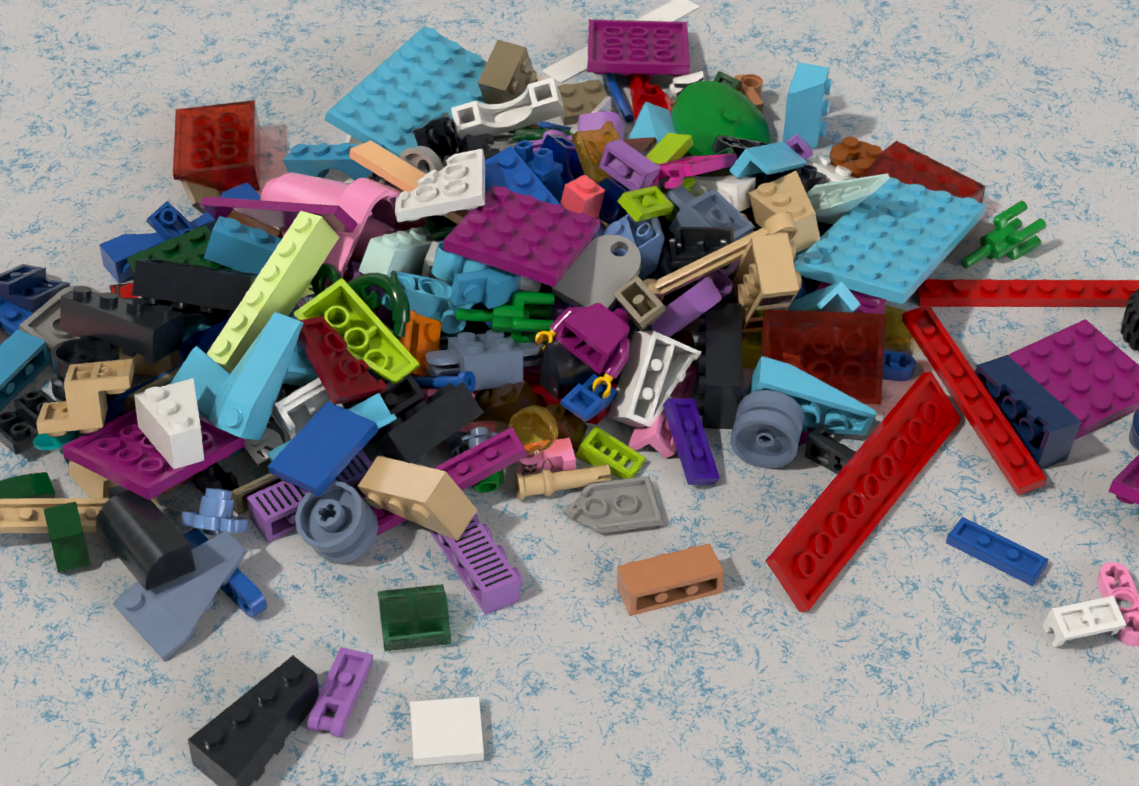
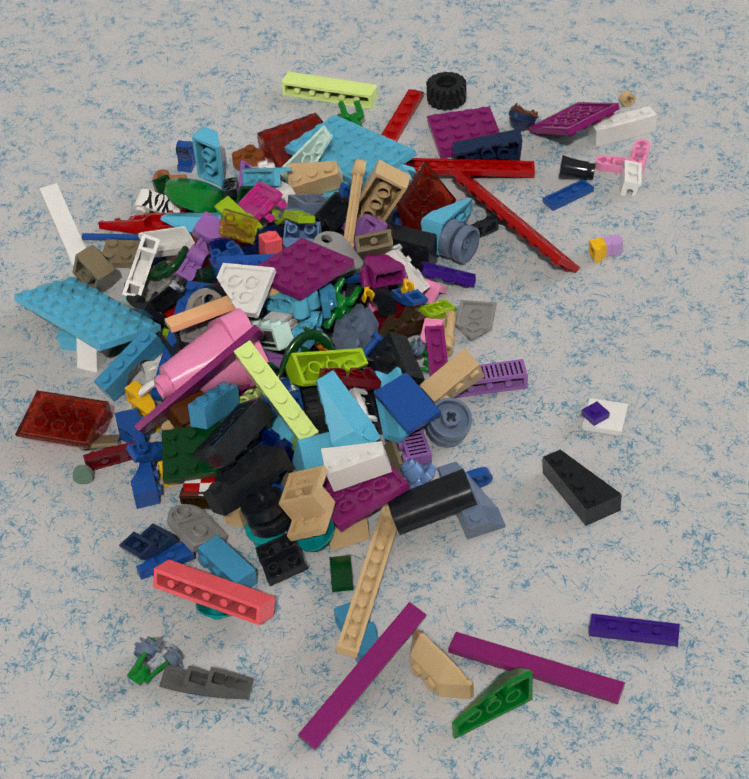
camera: 65 degrees left, 0 degrees up
(66, 536) = (400, 545): dark green slope -> none
(140, 195) = (82, 474): none -> sand green tile
(169, 193) = (107, 457): none -> dark red hinge
(340, 691) = (550, 443): medium lavender plate -> none
(414, 617) = (523, 410): clear green plate -> none
(436, 710) = (595, 413): none -> dark purple plate
(535, 428) = (419, 320): clear yellow hair -> none
(628, 165) = (261, 216): medium lavender slope -> none
(638, 47) = (91, 213): magenta plate -> none
(670, 579) = (539, 308): nougat brick -> none
(873, 630) = (605, 247): none -> leg
(1060, 538) = (576, 169): none -> black plant
(1073, 195) = (329, 89): none -> yellowish green brick

